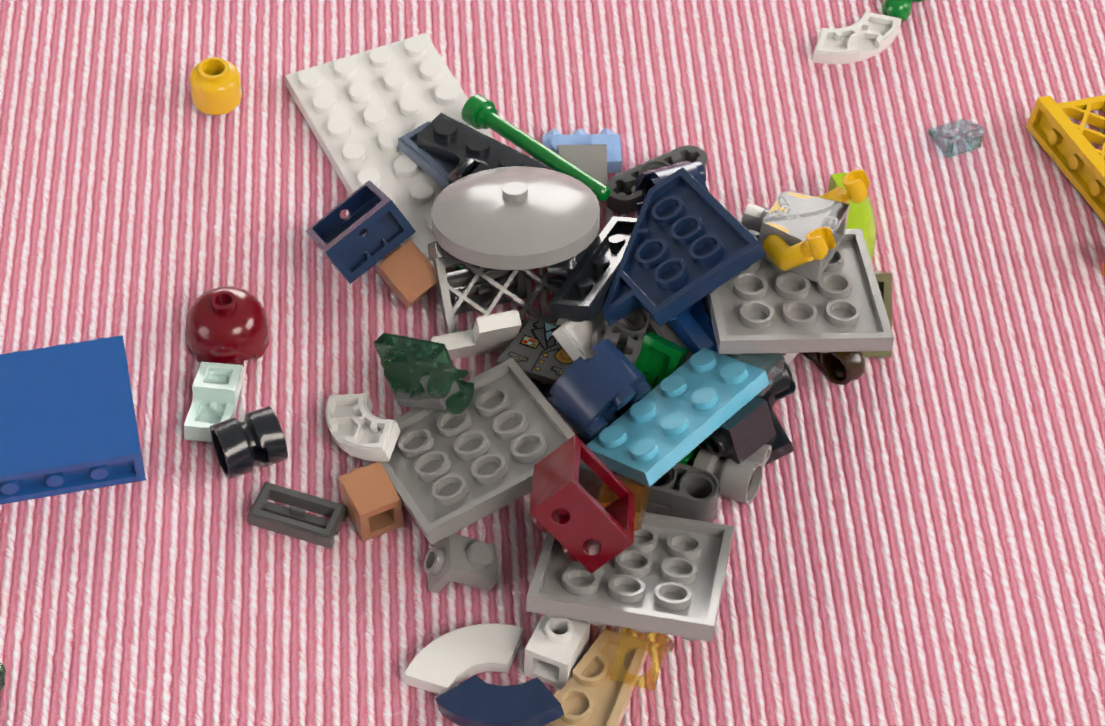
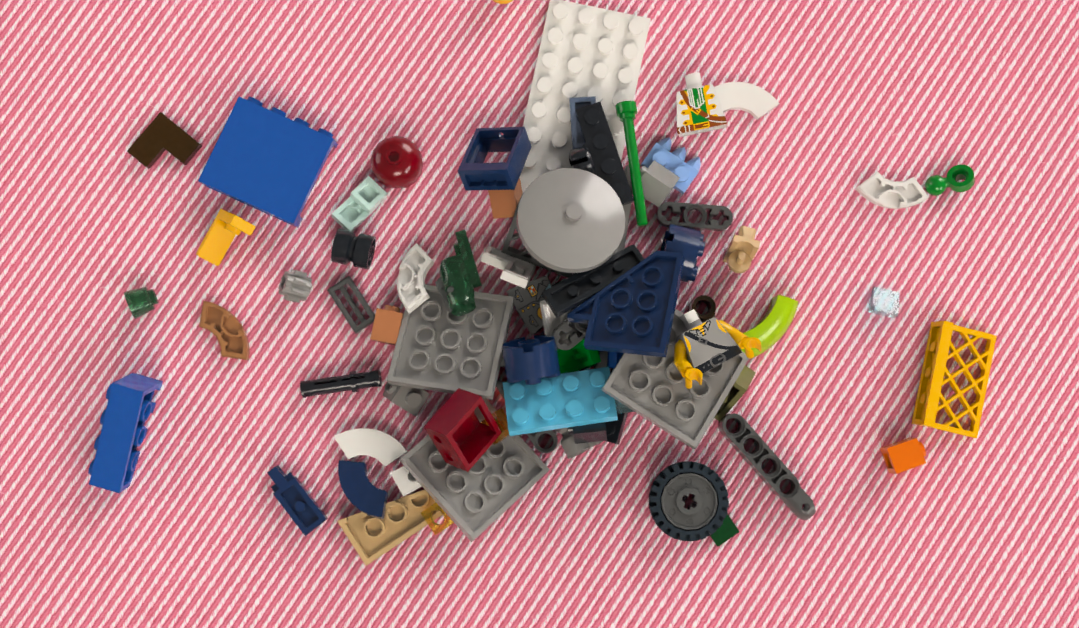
camera: 35 degrees right, 35 degrees up
(40, 520) = (221, 236): none -> yellow bracket
(137, 650) = (226, 329): none -> medium nougat tile
(199, 529) = (295, 286): none -> light grey gear
(373, 596) = (329, 385): none -> black pin
(564, 73) = (698, 108): none -> torso
(601, 47) = (746, 98): none -> white tile
(745, 164) = (741, 250): none -> tan hips
(940, 451) = (708, 494): none -> wheel
(991, 356) = (796, 496): none -> dark grey piece
(1007, 463) = (725, 532): none -> dark green tile

